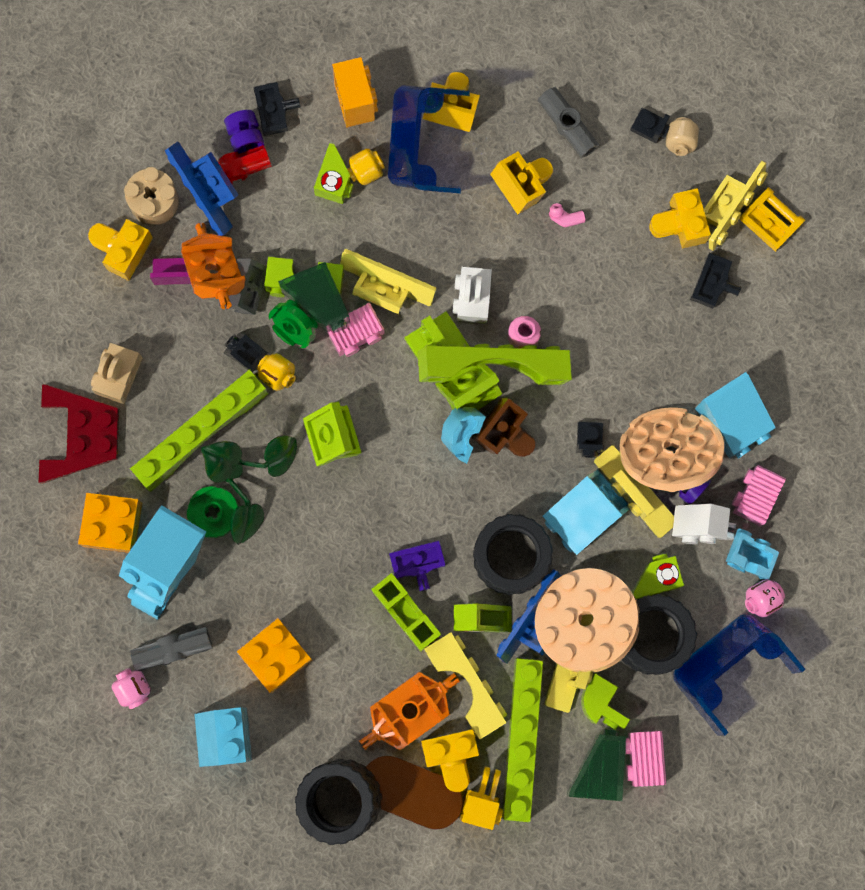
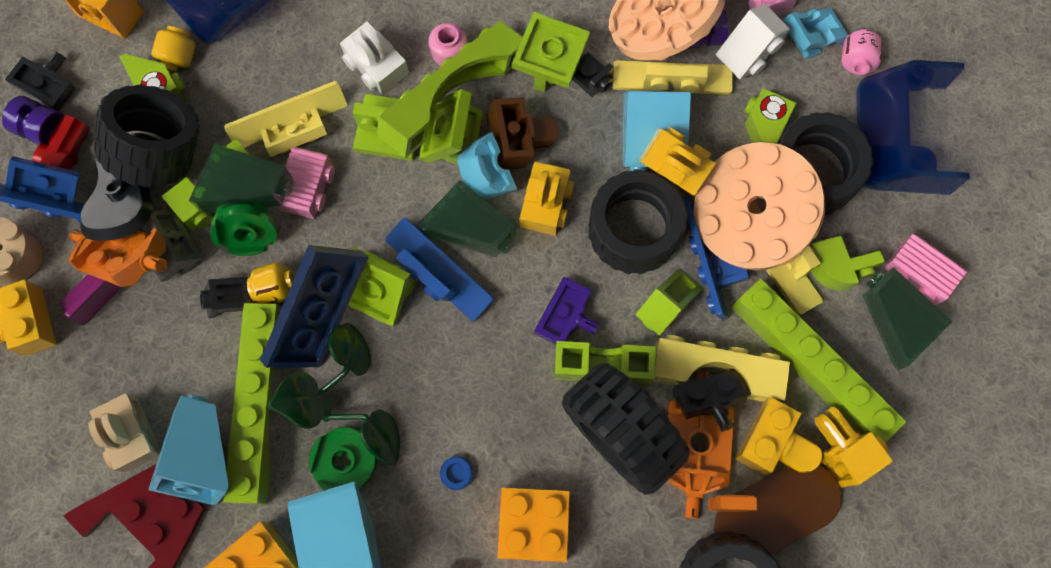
camera: 40 degrees left, 5 degrees down
(139, 424) = (192, 454): none -> medium azure slope
(242, 237) = (115, 206): none -> black plate
(265, 584) = (456, 473): none -> blue tile
(282, 414) = (313, 307): none -> dark blue plate
(316, 202) = (138, 159): none -> black tyre
(372, 460) = (437, 270): none -> blue bracket
(372, 658) = (626, 428): none -> black tyre
(386, 758) = (732, 503): none -> orange tile
(421, 452) = (469, 222): none -> clear green slope
(442, 694) = (711, 396): none -> black plate
(479, 485) = (545, 199): none -> yellow brick
(571, 545) = (677, 161): none -> yellow brick
(576, 401) = (550, 51): none -> lime bracket

